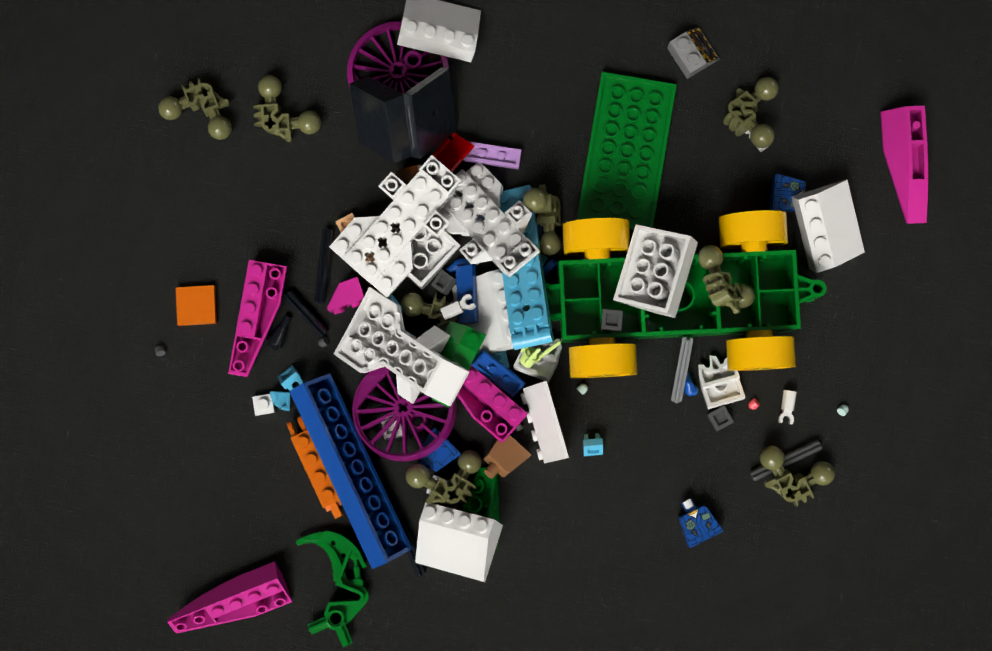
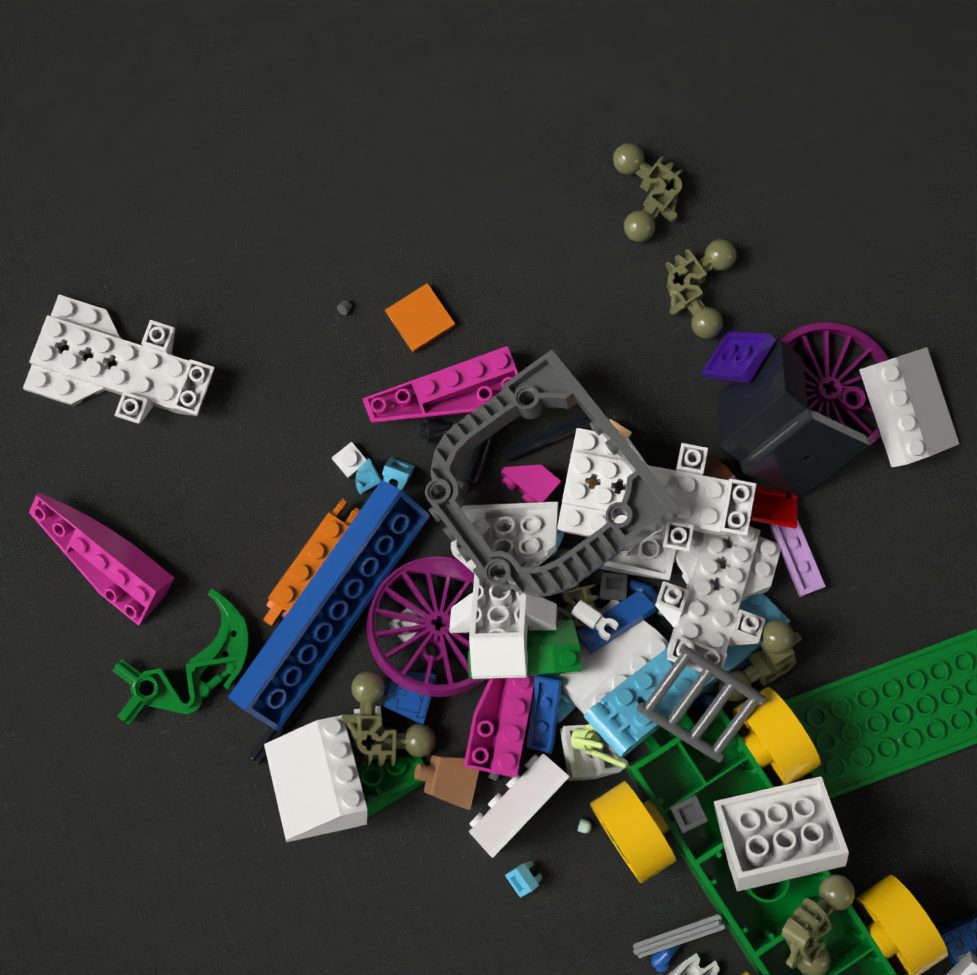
camera: 55 degrees right, 5 degrees down
(127, 508) = (143, 375): none -> white piece
(292, 247) = (549, 385): none -> dark grey arch
(343, 115) = (739, 356): none -> dark purple plate
(531, 255) = (709, 669): none -> dark grey bar

